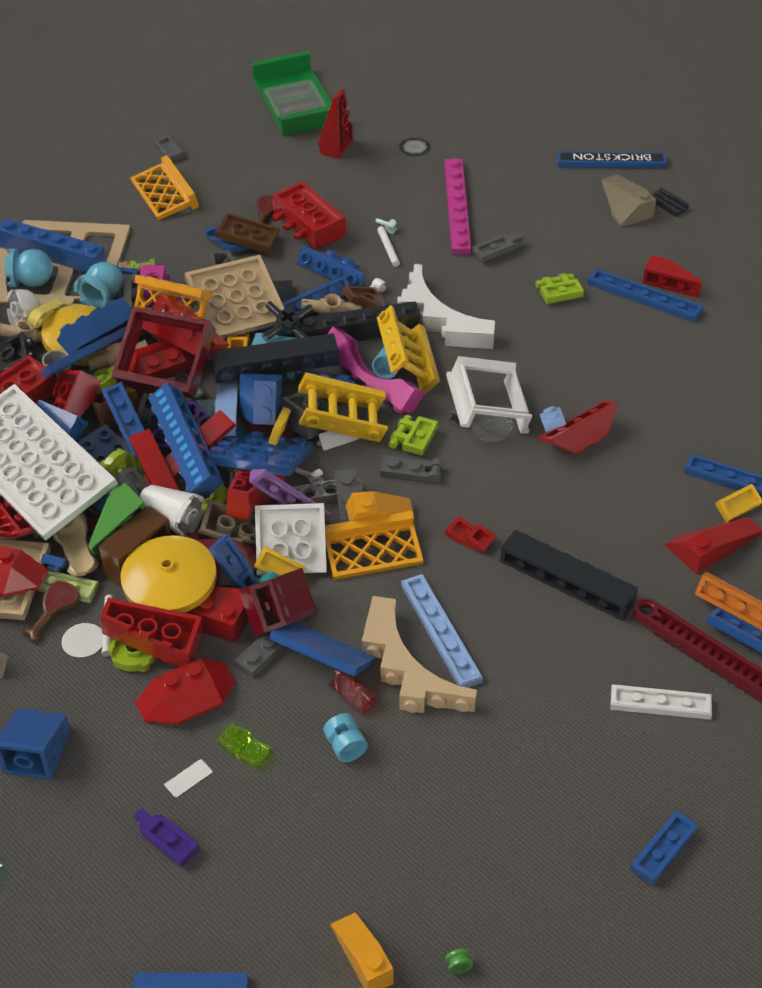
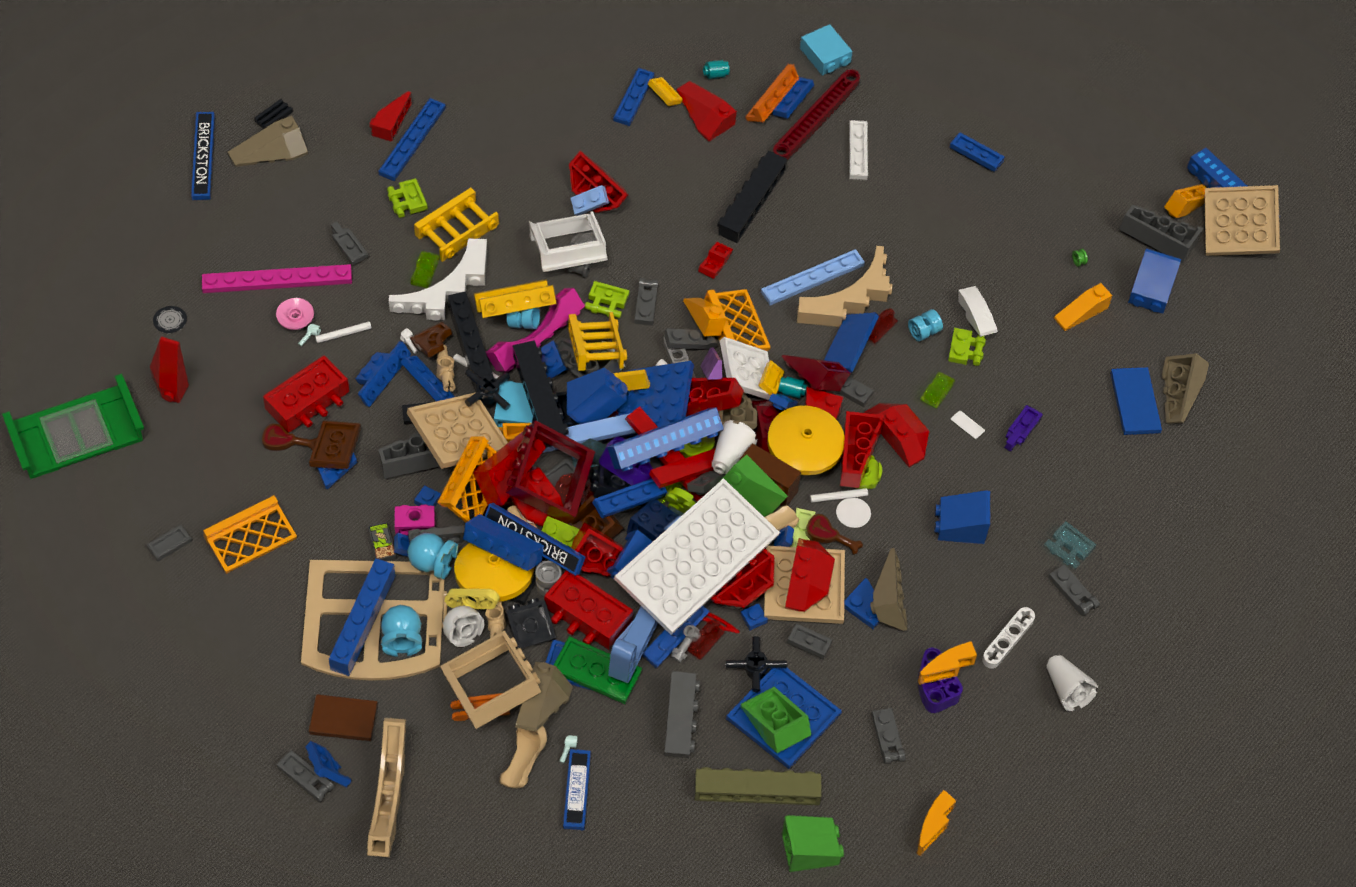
camera: 100 degrees left, 10 degrees up
(312, 783) = (961, 344): none -> lime plate
(363, 802) = (977, 311): none -> white slope
(409, 211) = (295, 308): none -> bright pink dish
(468, 302) = (425, 269): none -> clear neon green slope
(528, 306) = (448, 211): none -> yellow fence

